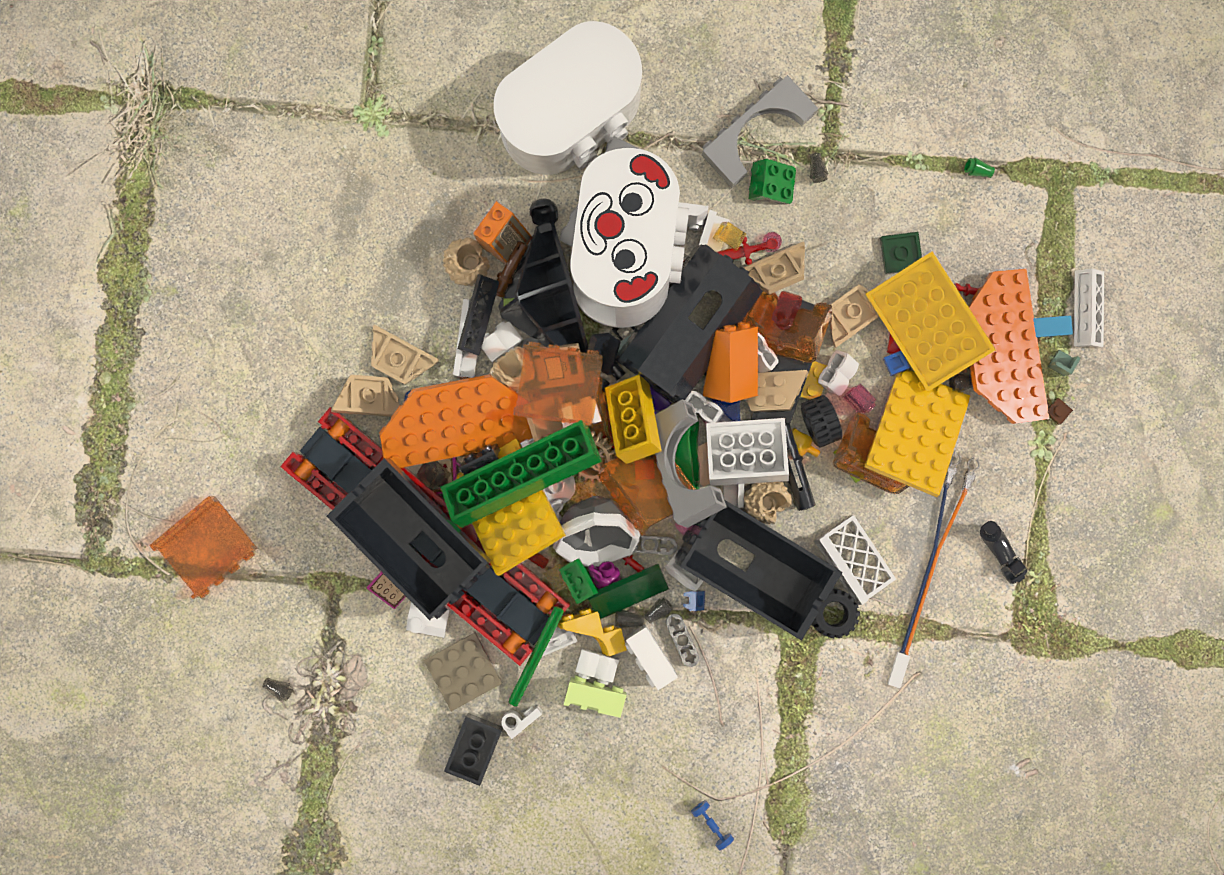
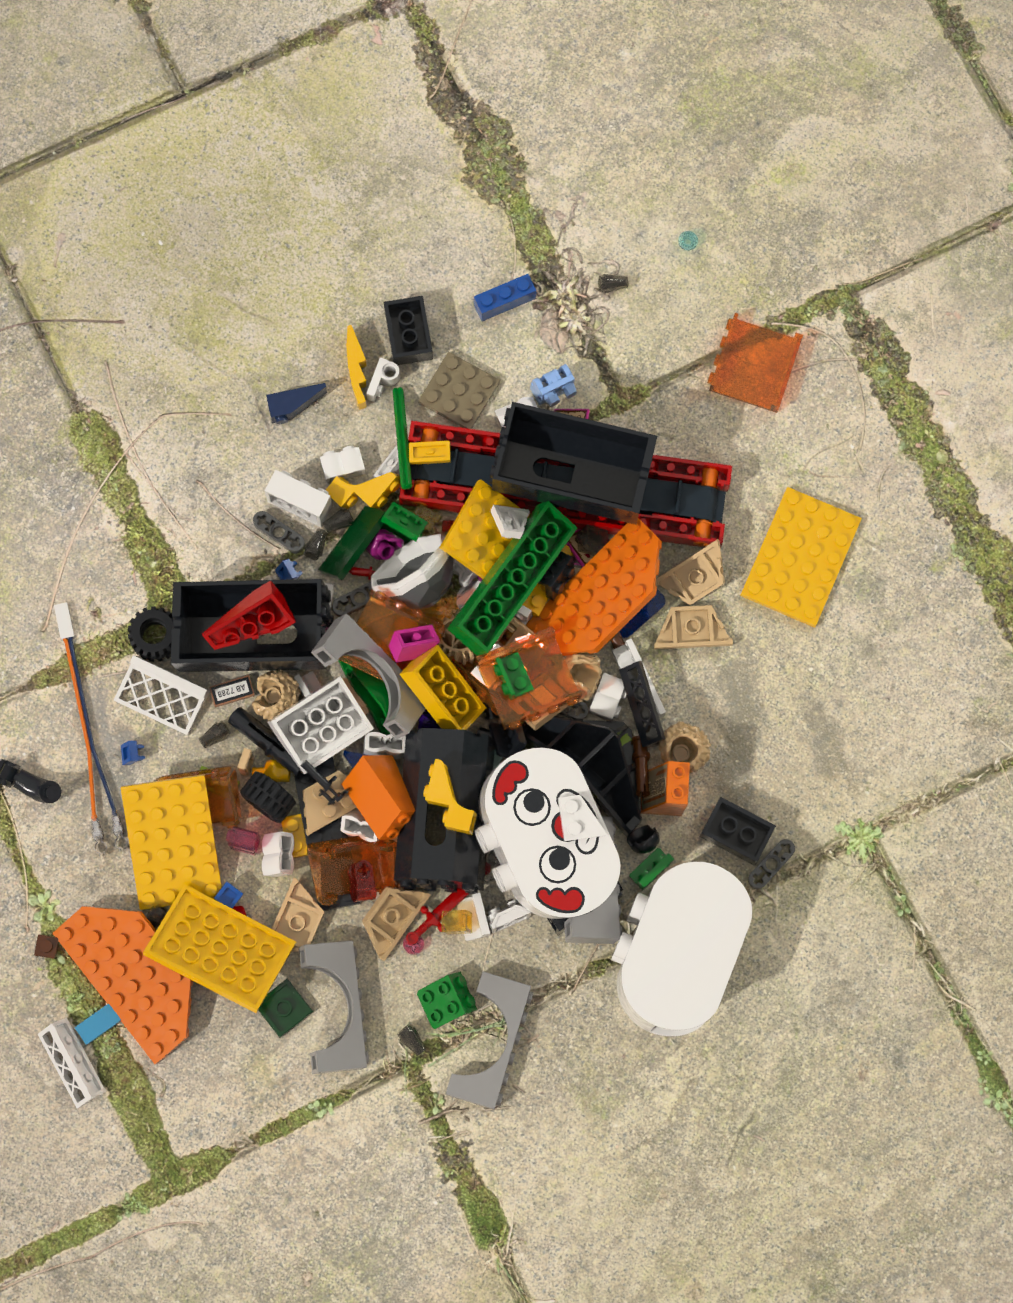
camera: 145 degrees right, 10 degrees down
(187, 692) = (688, 235): none -> clear light blue plate
(273, 364) = (801, 557): none -> yellow plate
(375, 730) = (504, 297): none -> blue brick
(380, 628) = (553, 385): none -> light blue hips
(466, 173) = (737, 831): none -> black brick
(468, 127) = (765, 879): none -> dark grey beam
(493, 522) = (510, 520): none -> white wing
(521, 628) = (429, 452): none -> yellow plate
(533, 749) = (356, 361): none -> yellow slope
(552, 185) = (651, 868): none -> green bracket
(569, 394) = (513, 675): none -> green bracket
(595, 696) = (328, 436): yellowish green wedge -> none
(598, 222) = (578, 819): none -> white wing
(610, 744) = (290, 403): none -> dark blue slope
(635, 469) = (412, 642): none -> dark pink slope
(688, 326) = (441, 793): none -> yellow arch
(725, 840) = (137, 382): blue wheel -> none
(749, 568) = (256, 615): none -> red wedge
(771, 399) = (324, 783): none -> black piece
(797, 529) = (232, 691): none -> tile
(821, 461) = (246, 762): none -> tan tile
(831, 501) = (216, 734): none -> clear smoke cone
(872, 188) = (338, 962): none -> light grey arch
(908, 526) = (129, 752): none -> blue tile
(967, 289) = (199, 1010): red piece -> none
(976, 167) = (257, 1134): green cone -> none
(1063, 363) = (68, 993): sand green panel -> none

